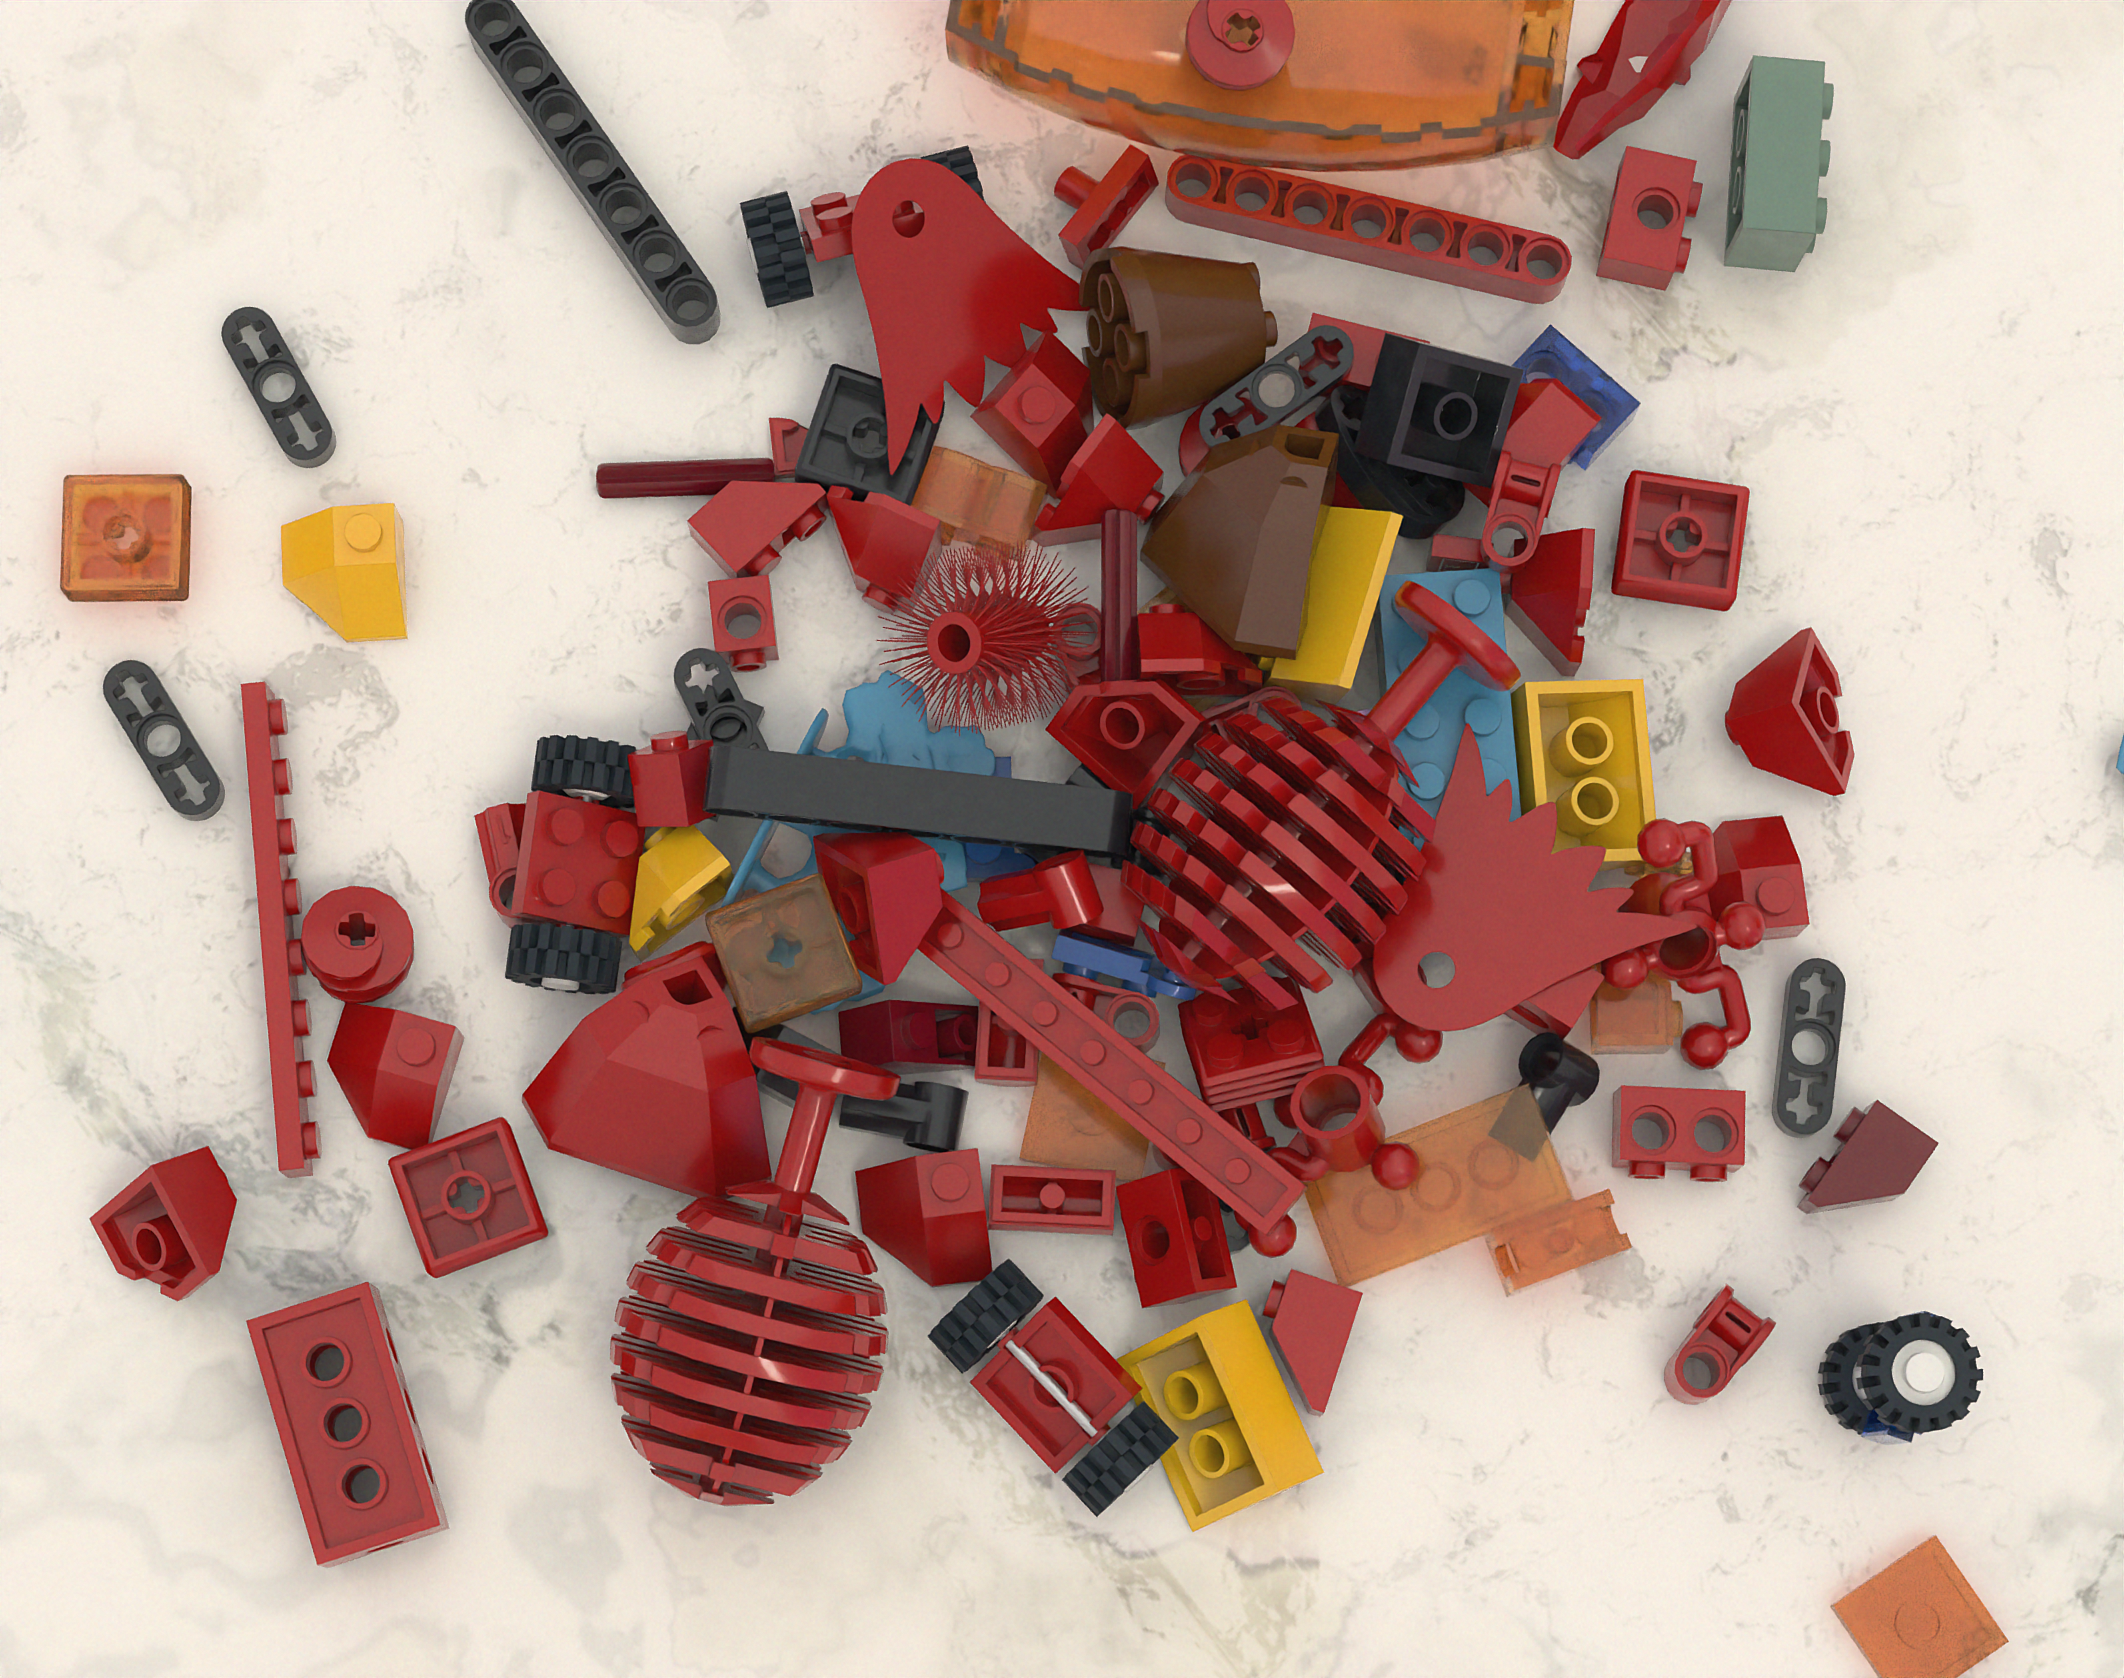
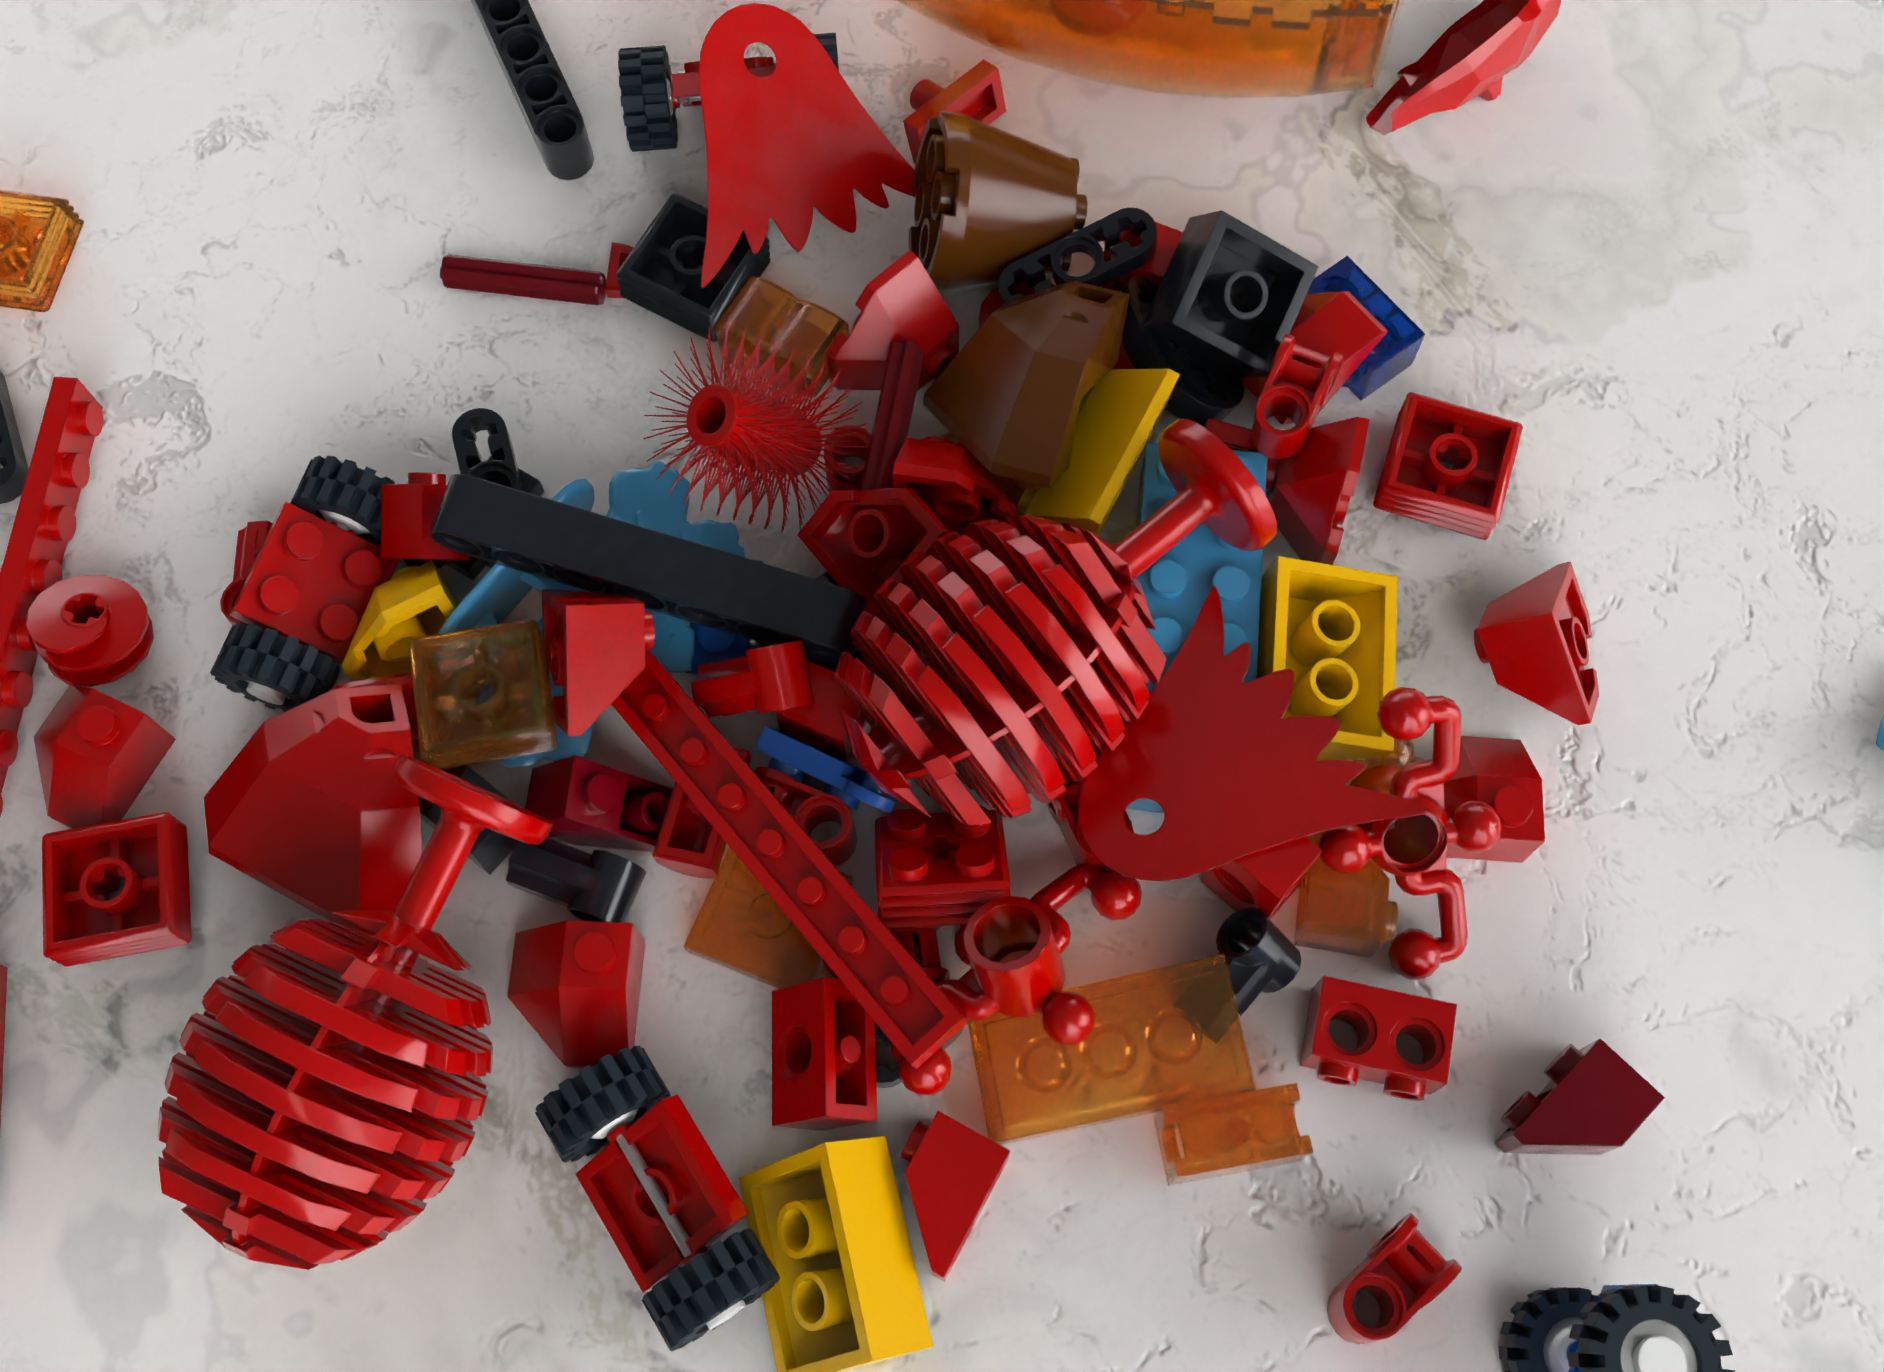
camera: 15 degrees right, 10 degrees down
(274, 344) = (202, 171): black beam -> none
(350, 569) = (203, 306): yellow slope -> none
(743, 597) = (536, 382): red brick -> none
(754, 521) = (575, 320): red slope -> none
(882, 542) = (668, 327): red slope -> none
(1041, 410) = (848, 253): red slope -> none
(1052, 1200) = (704, 995): red brick -> none
(1395, 217) = (1192, 164): red beam -> none
(1656, 184) = (1448, 192): red brick -> none
(1777, 163) = (1579, 155): sand green brick -> none
(1799, 1001) = (1495, 1016): black beam -> none

